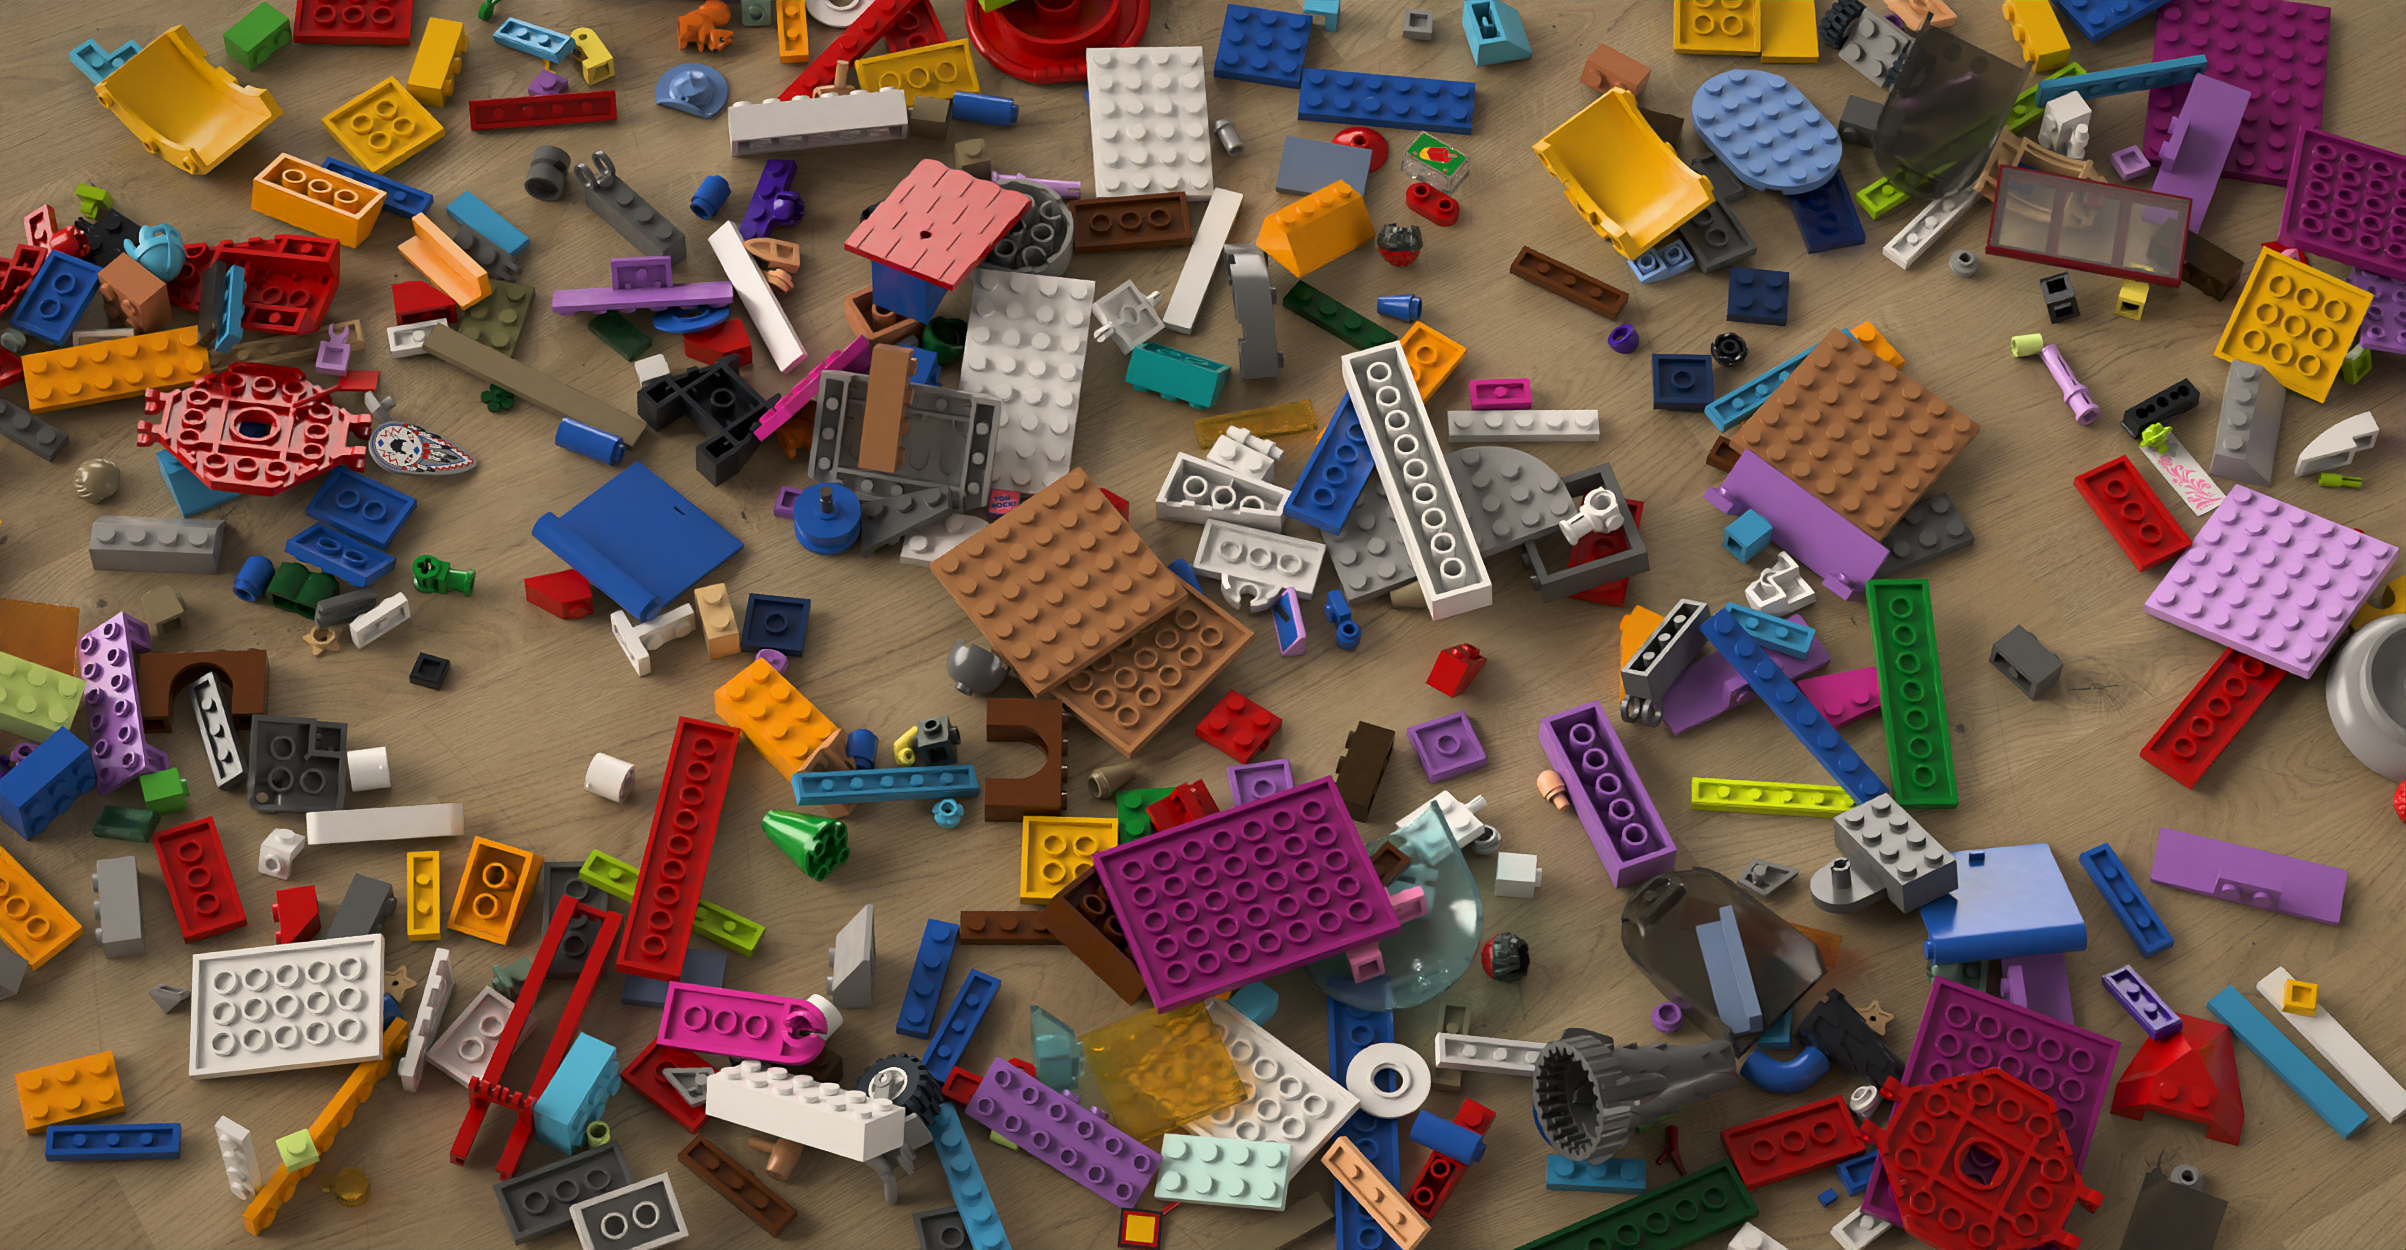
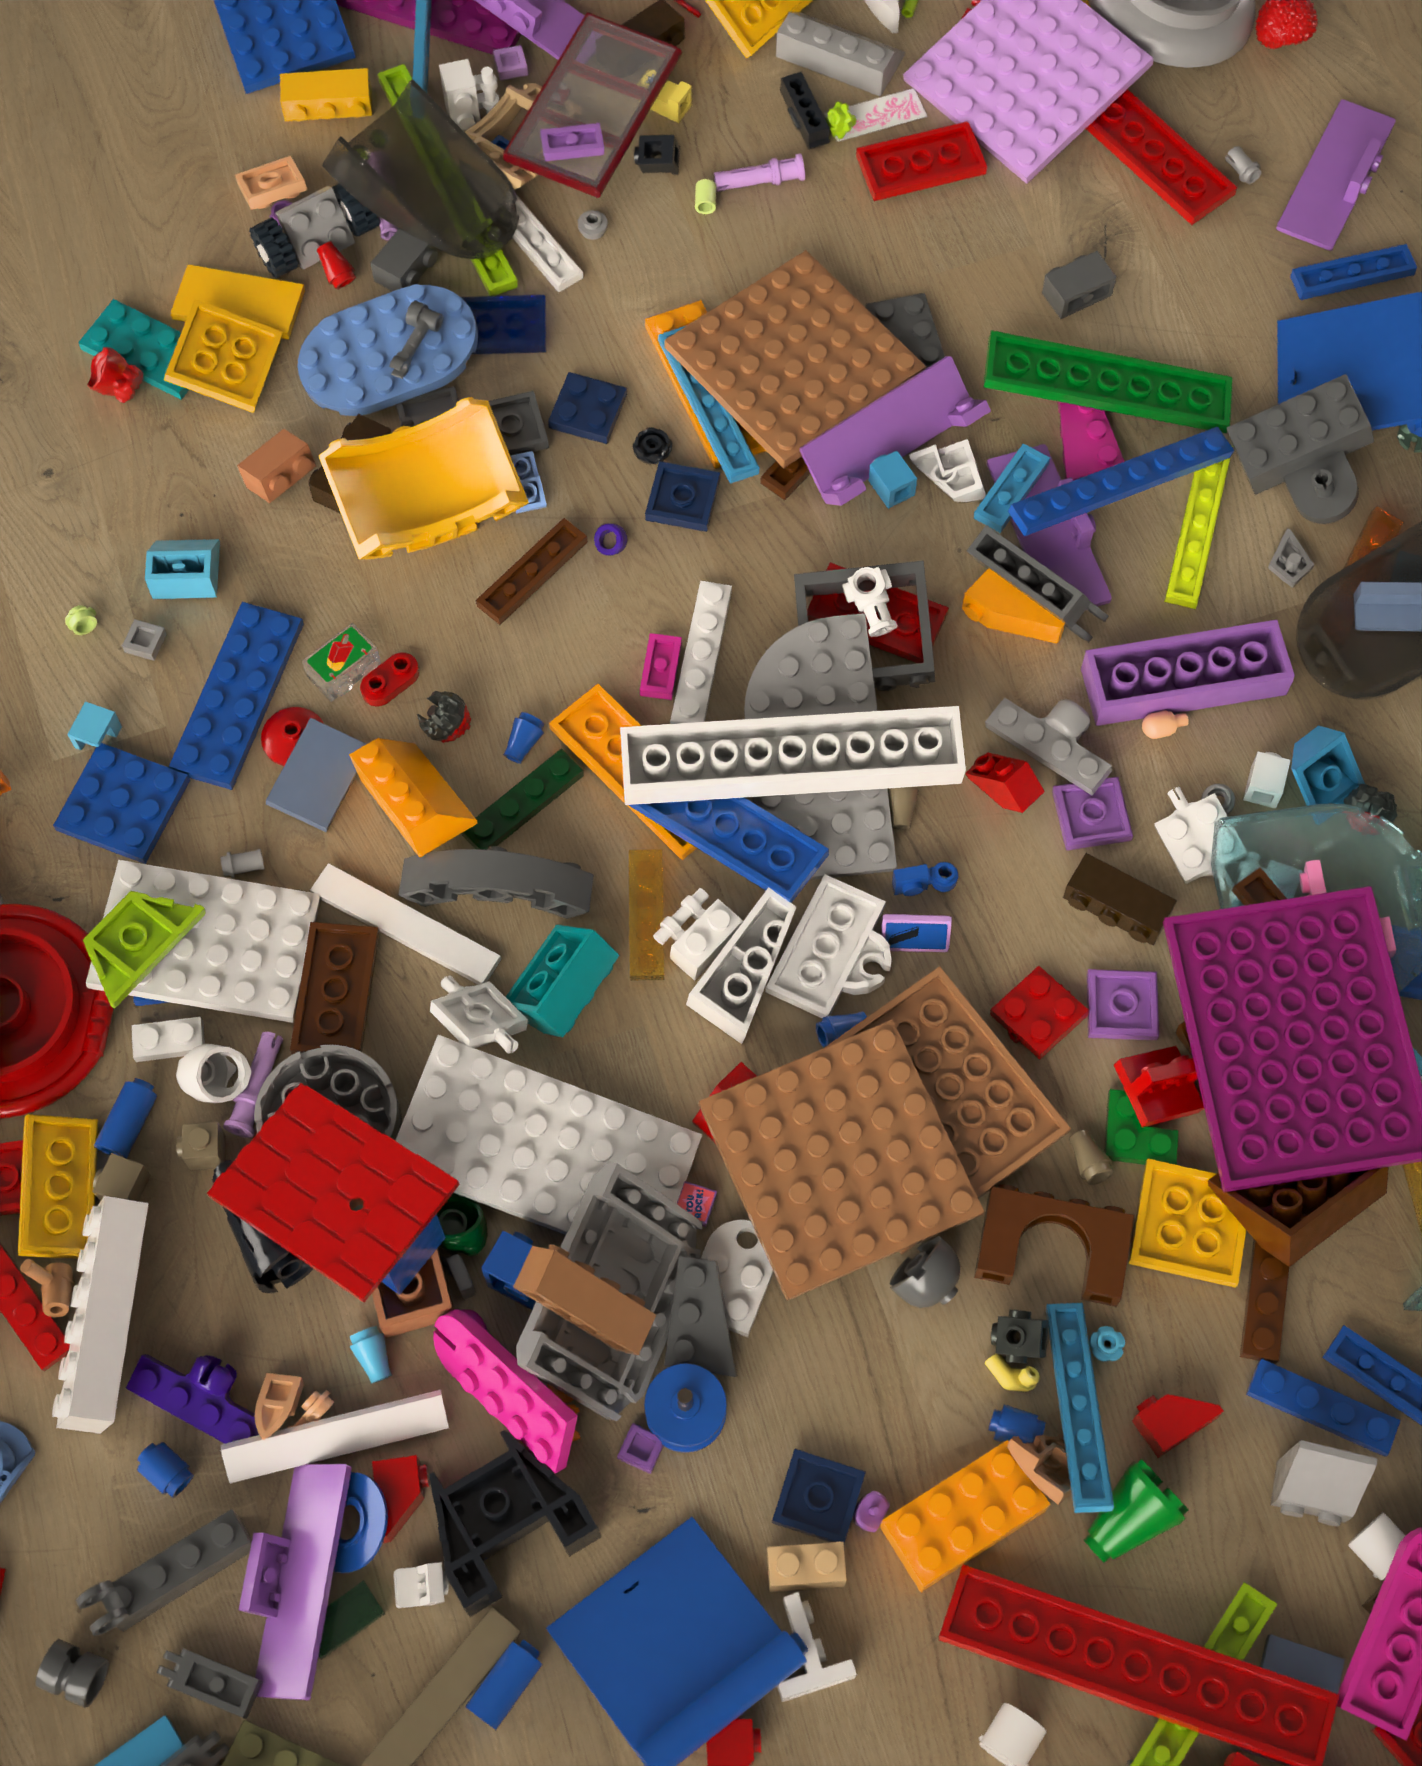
camera: 75 degrees left, 10 degrees up
(557, 260) = (211, 1682): none -> dark grey hinge
(827, 309) = (371, 1353): none -> medium azure cone
(888, 863) = (1172, 1420): none -> red slope
(1031, 150) = (206, 1073): none -> white piece
(1061, 124) = (166, 1038): none -> white plate
(1127, 67) = (135, 939): none -> lime wing
(1508, 701) = (1052, 740): none -> light grey plate
(1536, 915) = (1325, 767): none -> dark azure slope
(1793, 141) = (423, 320): none -> dark grey brick
(1843, 74) = (336, 266): none -> red cone
(2026, 211) = (572, 142): none -> medium lavender plate
(2223, 795) = (1247, 170): none -> light grey pin

